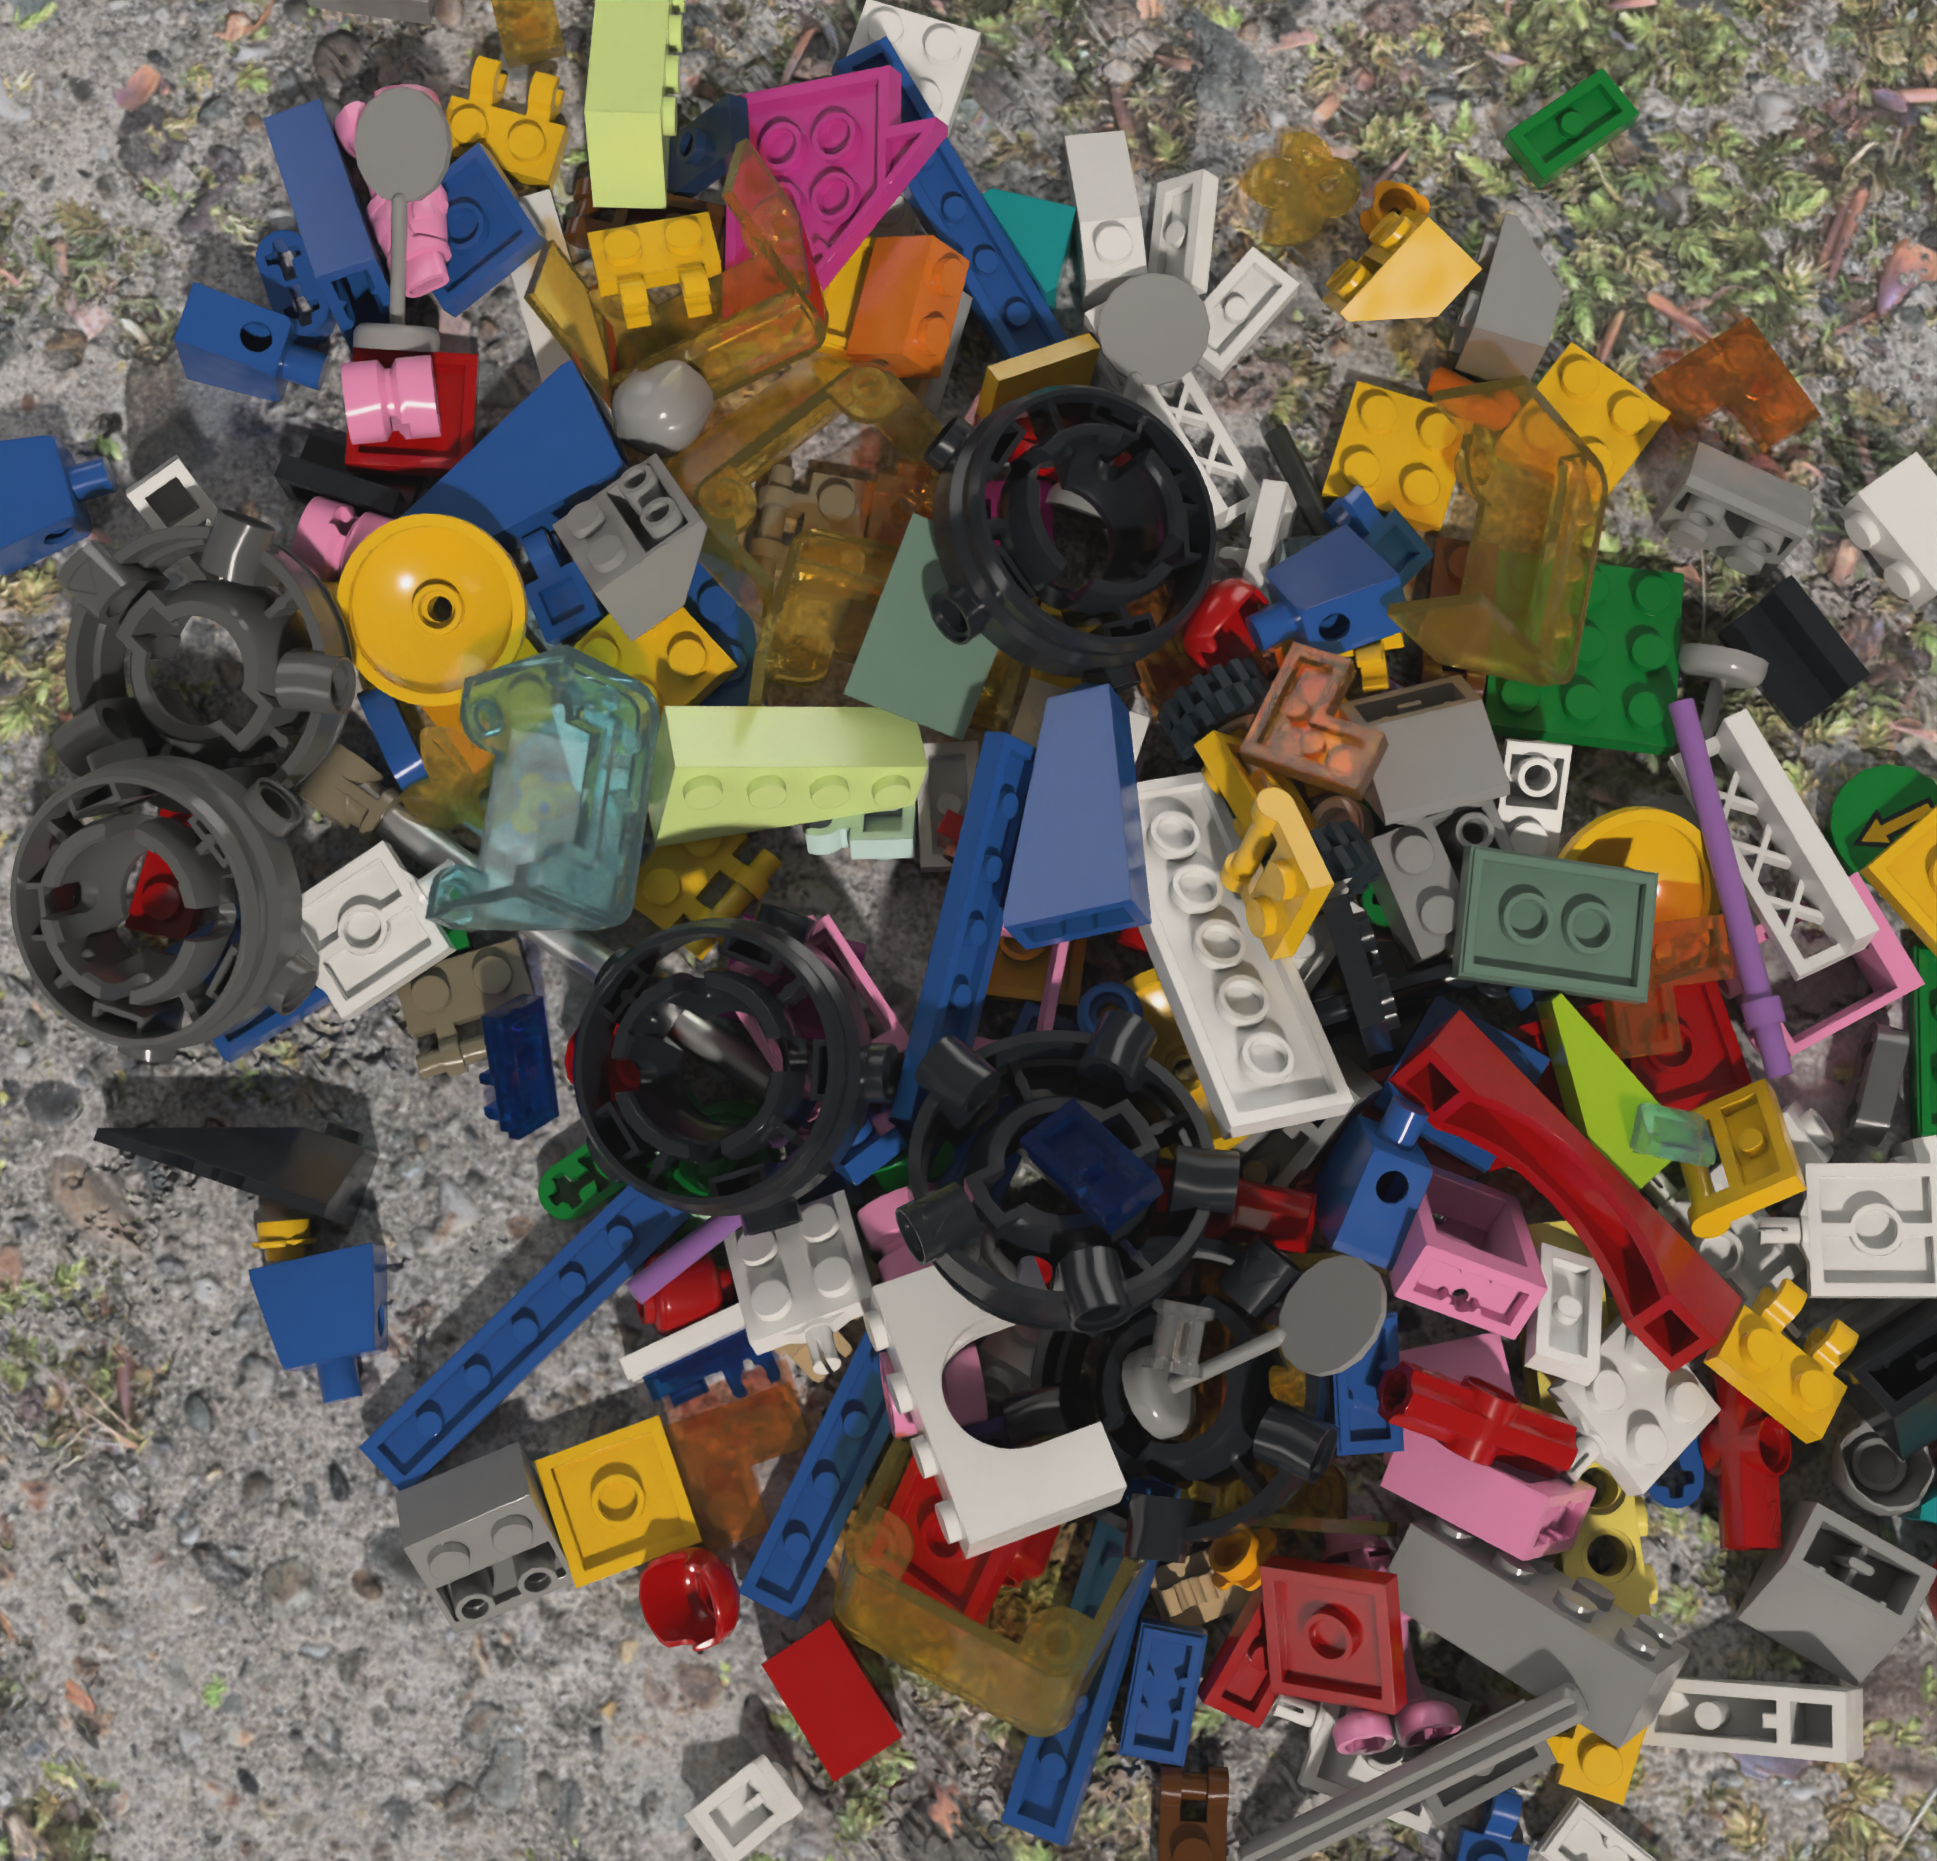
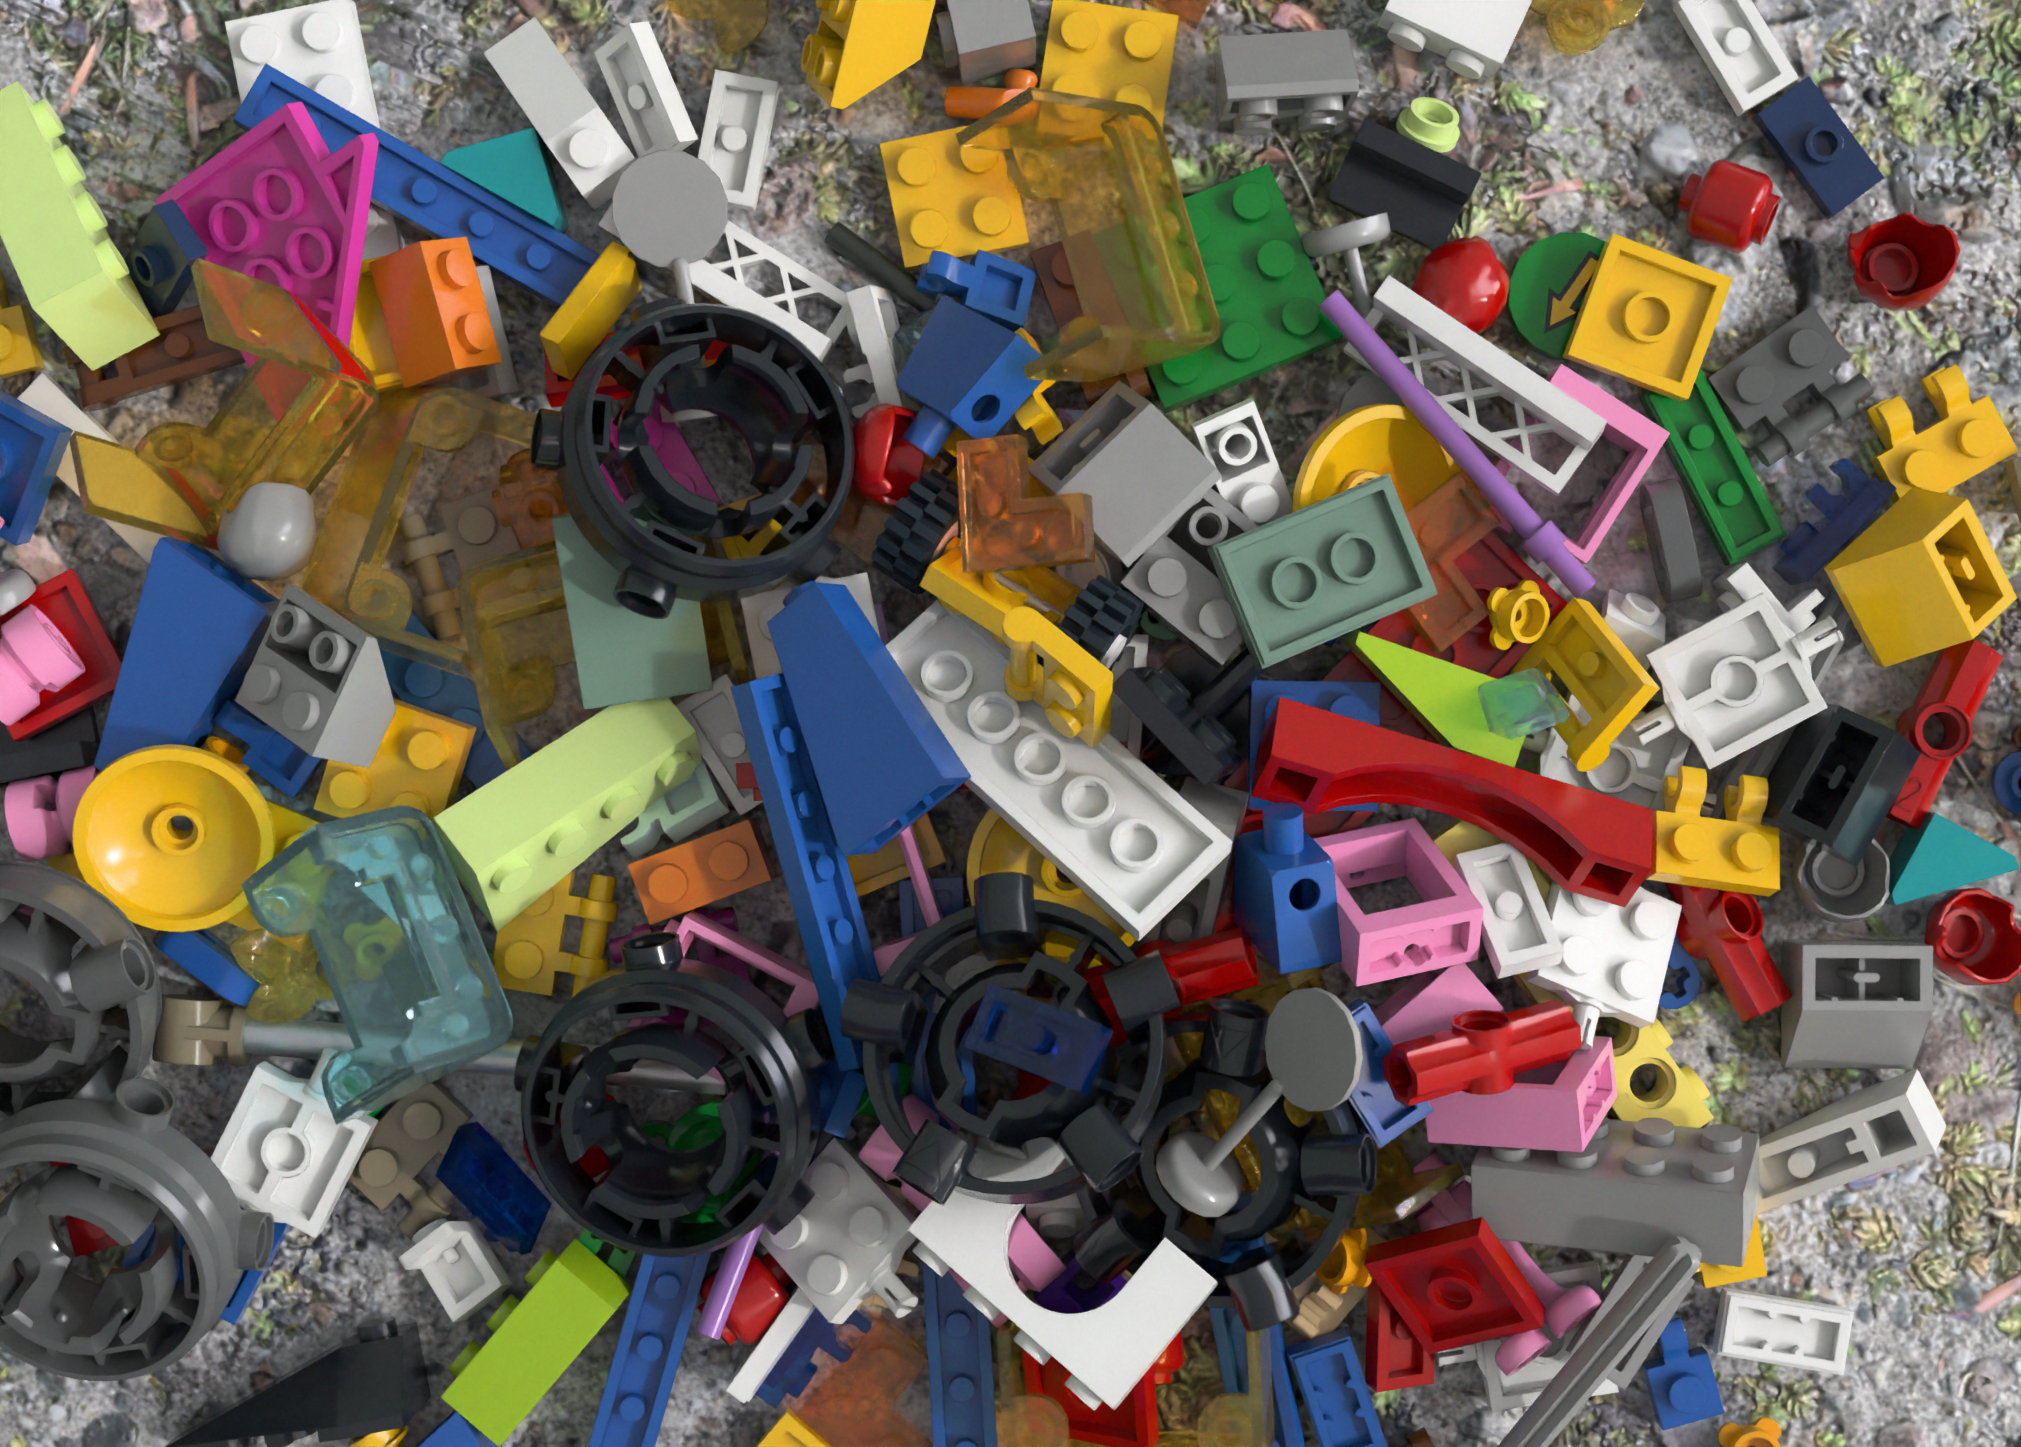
camera: 30 degrees left, 10 degrees up
(446, 1118) = (457, 1266): none -> white bracket
(475, 1220) = (534, 1340): none -> lime brick
(655, 256) = (176, 392): yellow plate -> none
(863, 894) = (702, 870): none -> orange brick
(1102, 996) = (960, 858): blue plate -> none
(1178, 1338) = (1192, 1130): clear bush -> none
(1705, 1066) = (1517, 614): none -> yellow plate
(1811, 759) = (1464, 282): none -> red hair
(1845, 614) = (1430, 124): none -> yellowish green plate

